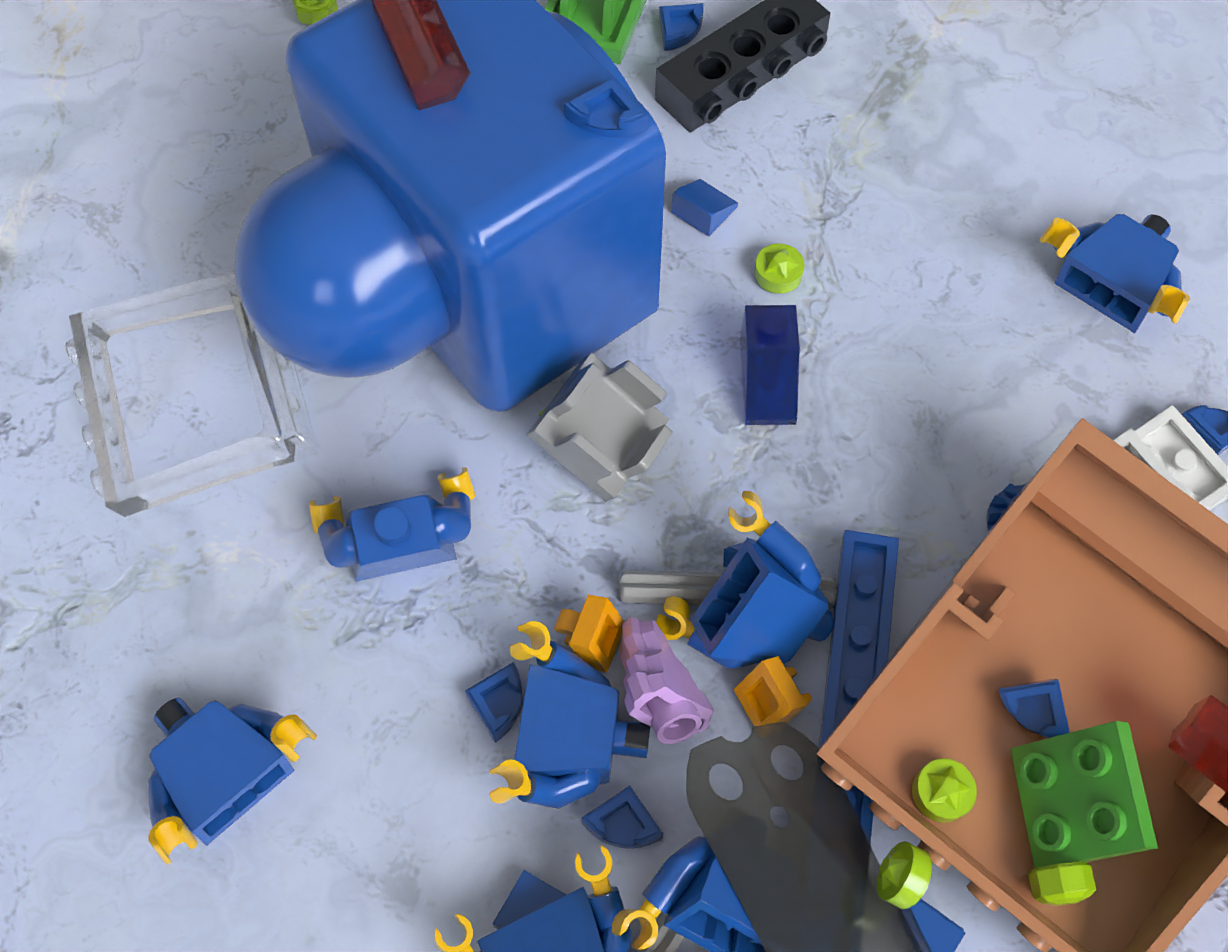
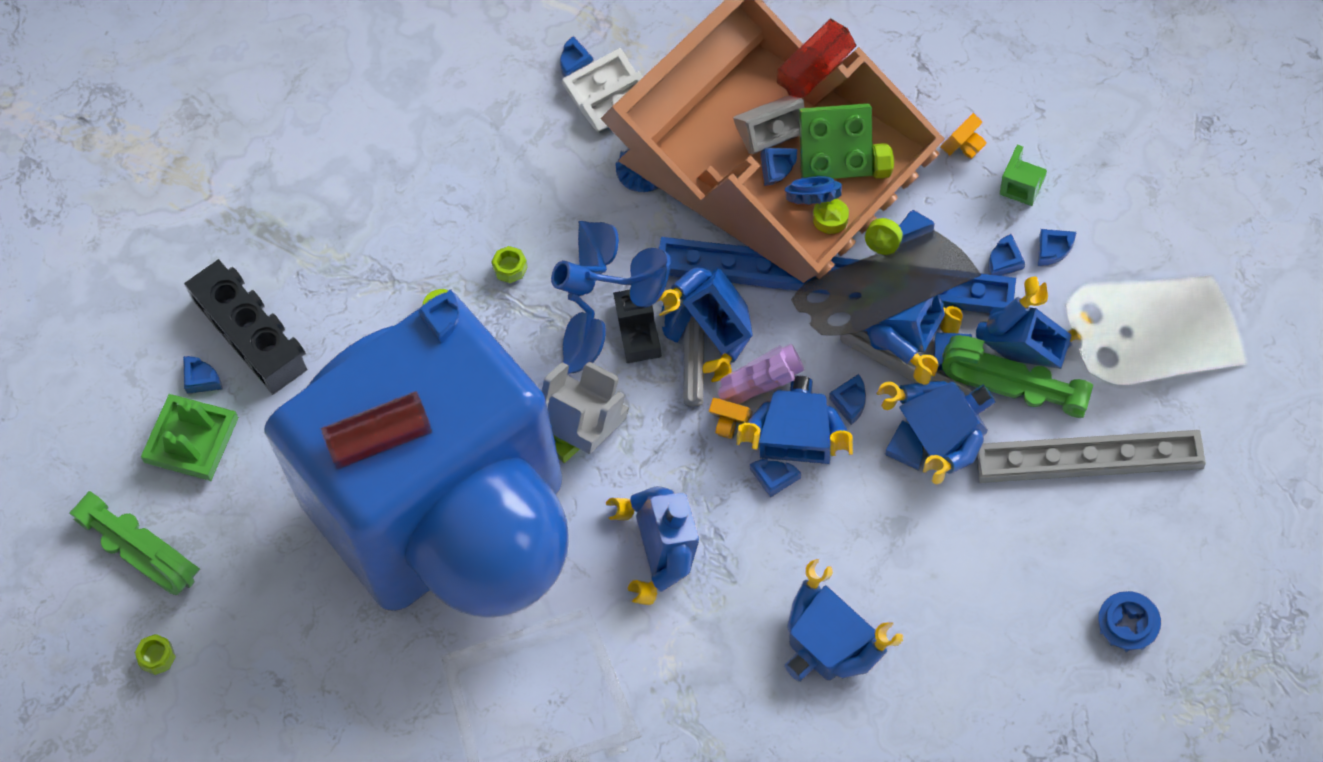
camera: 85 degrees left, 0 degrees up
(770, 364) = (526, 310): clear blue slope -> none
(770, 693) = (770, 312): light orange tile -> none
(782, 500) = (636, 329): none -> black slope
(786, 395) = (597, 248): none -> blue plant
(847, 345) = (509, 264): none -> lime tile
(983, 757) = (813, 190): none -> blue gear
(1111, 688) = (769, 123): none -> light grey slope
(1120, 267) = (457, 93): torso -> none

